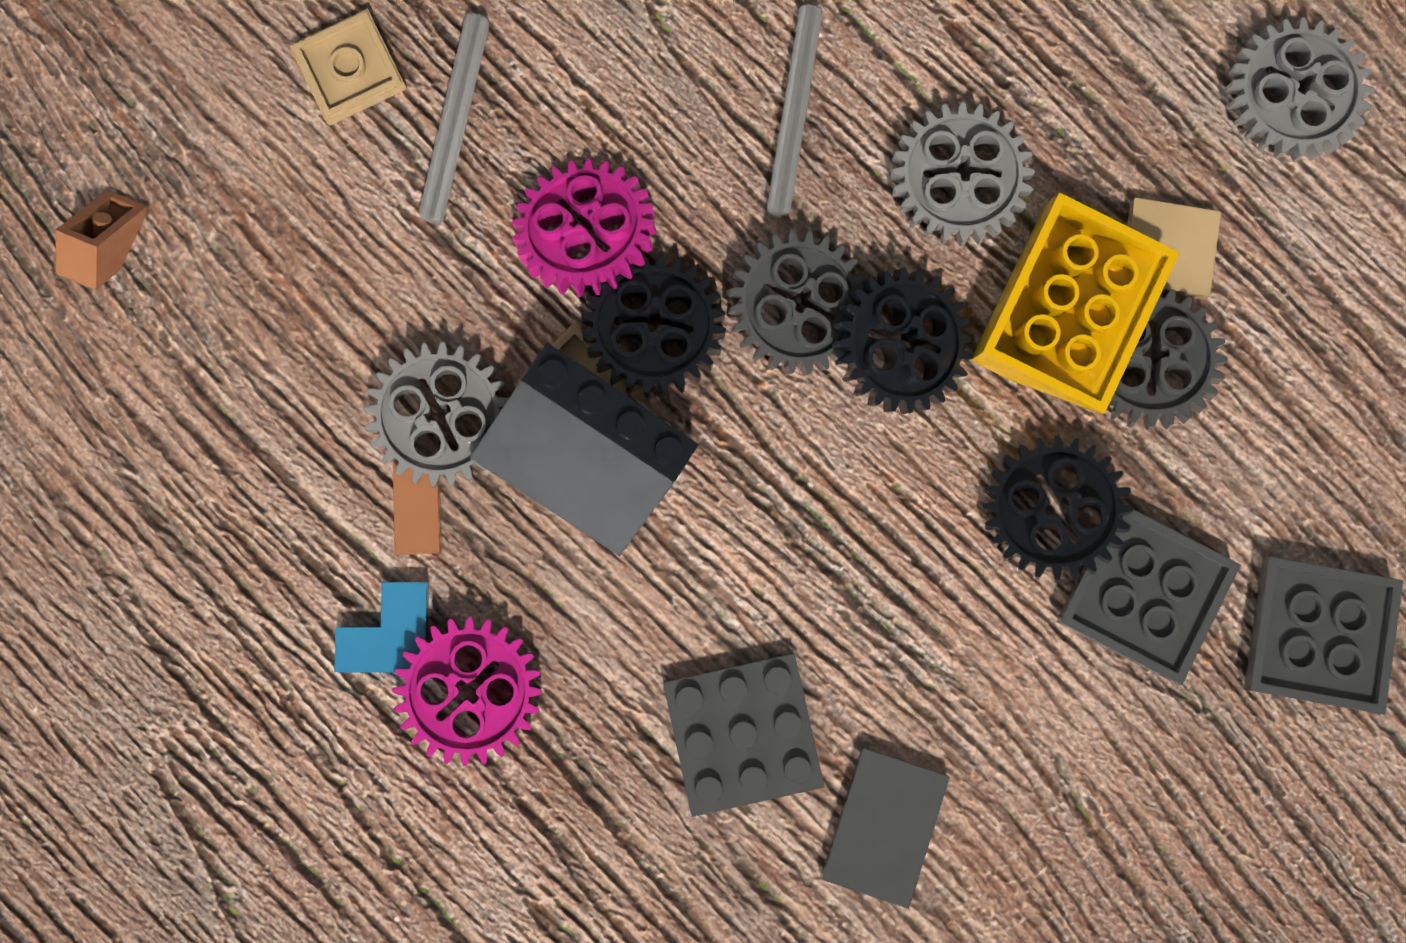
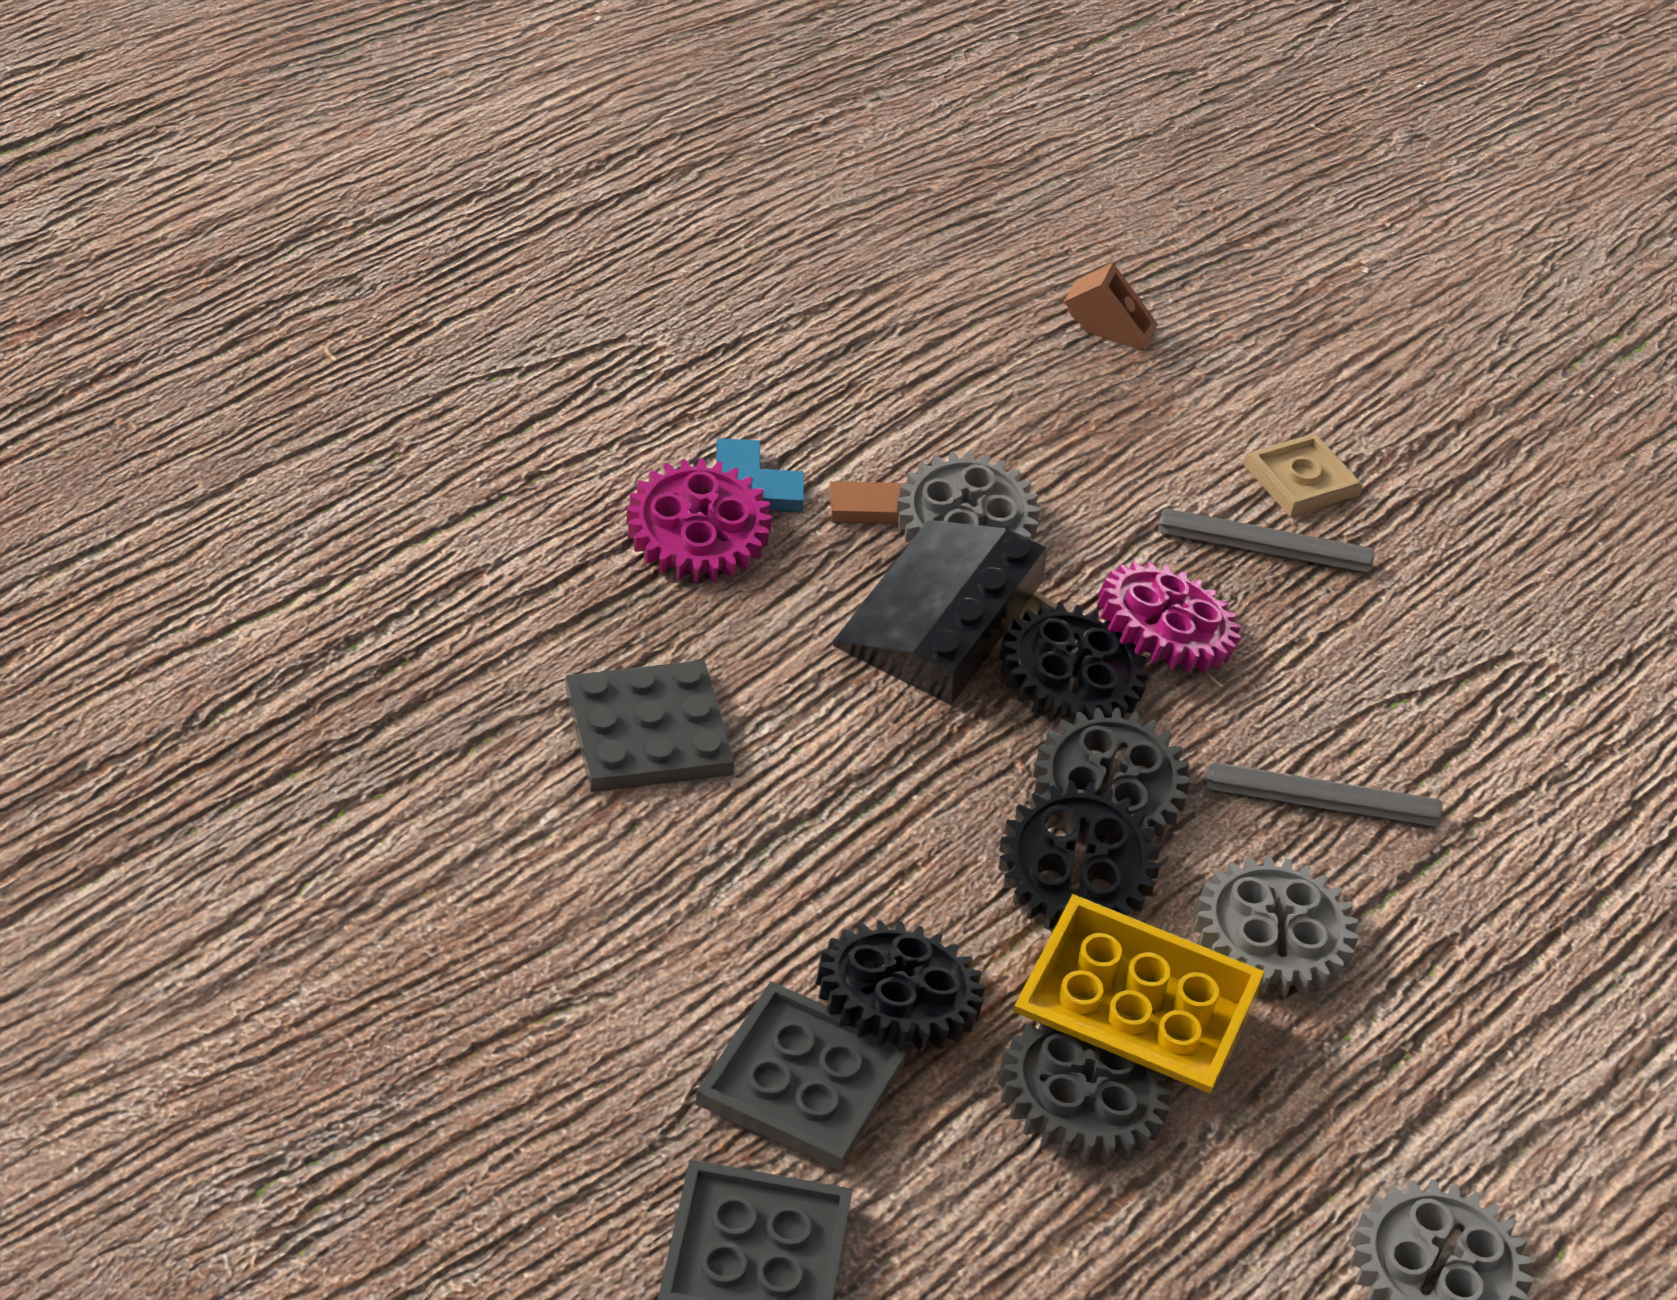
camera: 85 degrees right, 40 degrees down
(885, 827) = (544, 832): dark grey tile -> none
(1184, 229) = (1222, 1131): tan tile -> none

